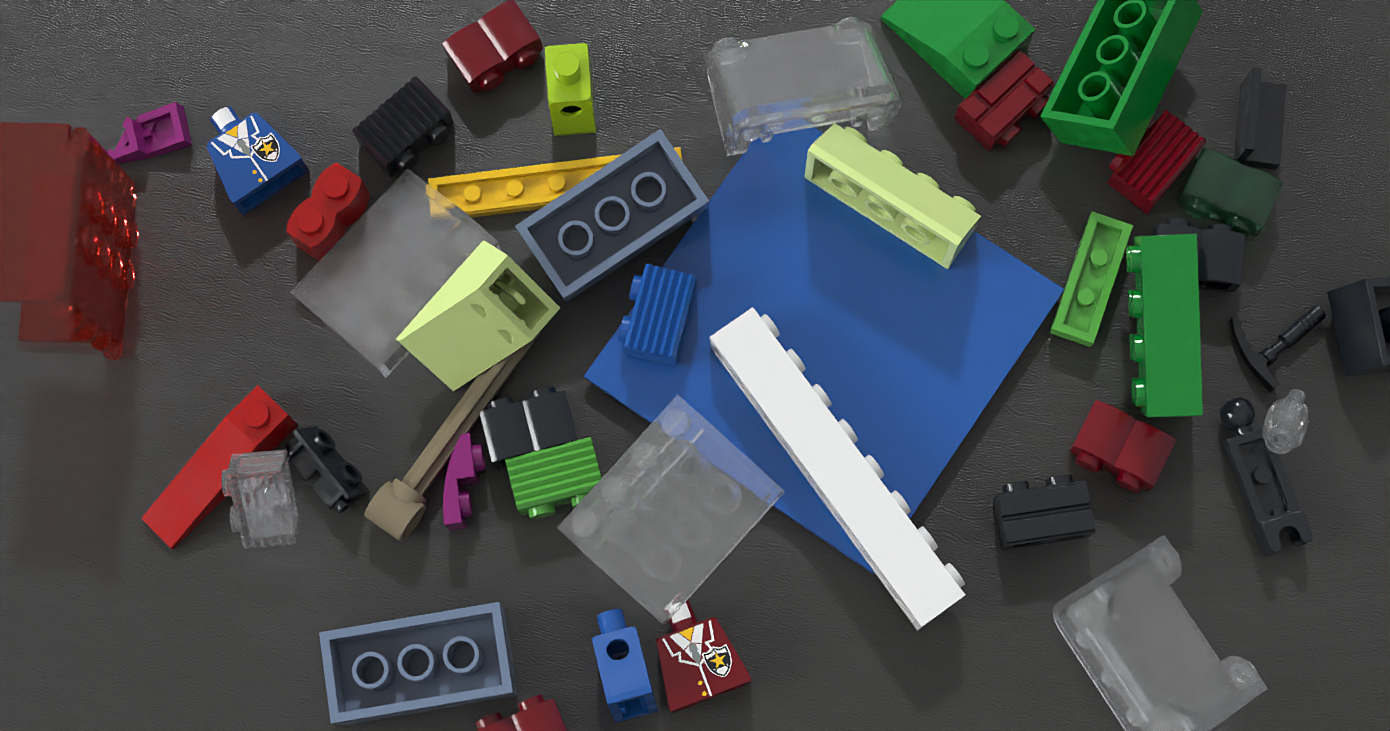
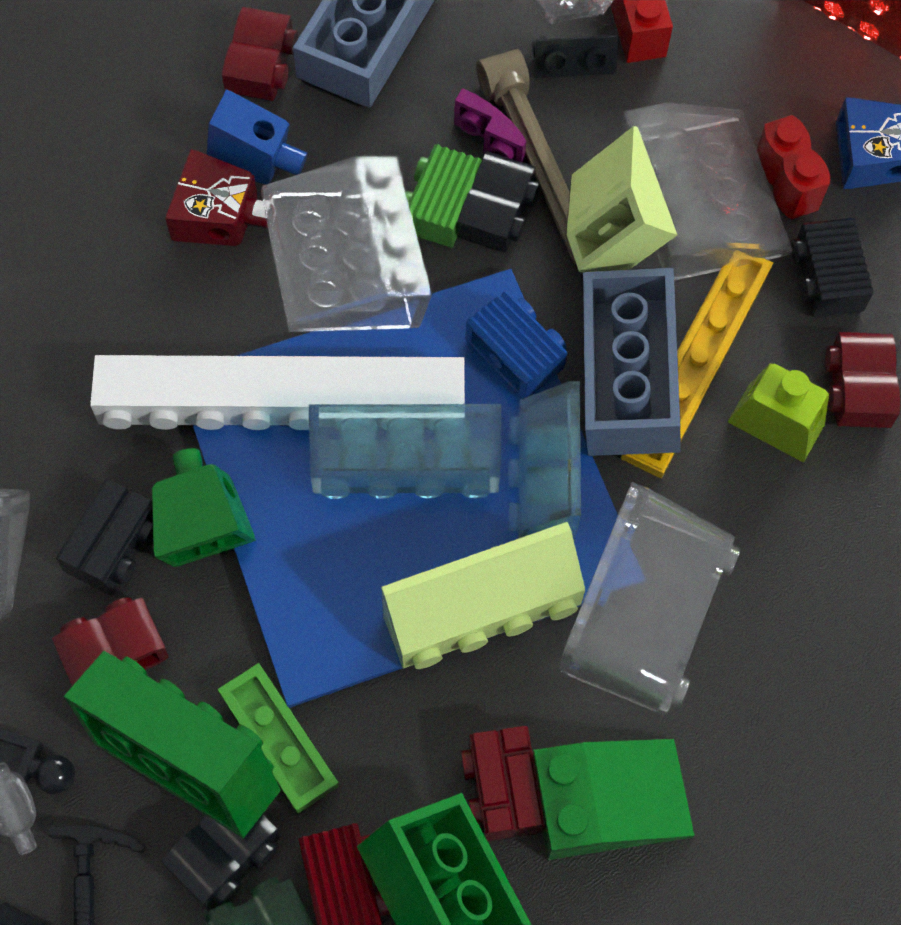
camera: 120 degrees right, 10 degrees down
(754, 214) = (546, 461): none -> clear light blue slope
(819, 329) = (405, 449): none -> clear light blue slope
(976, 457) = (197, 512): none -> green torso

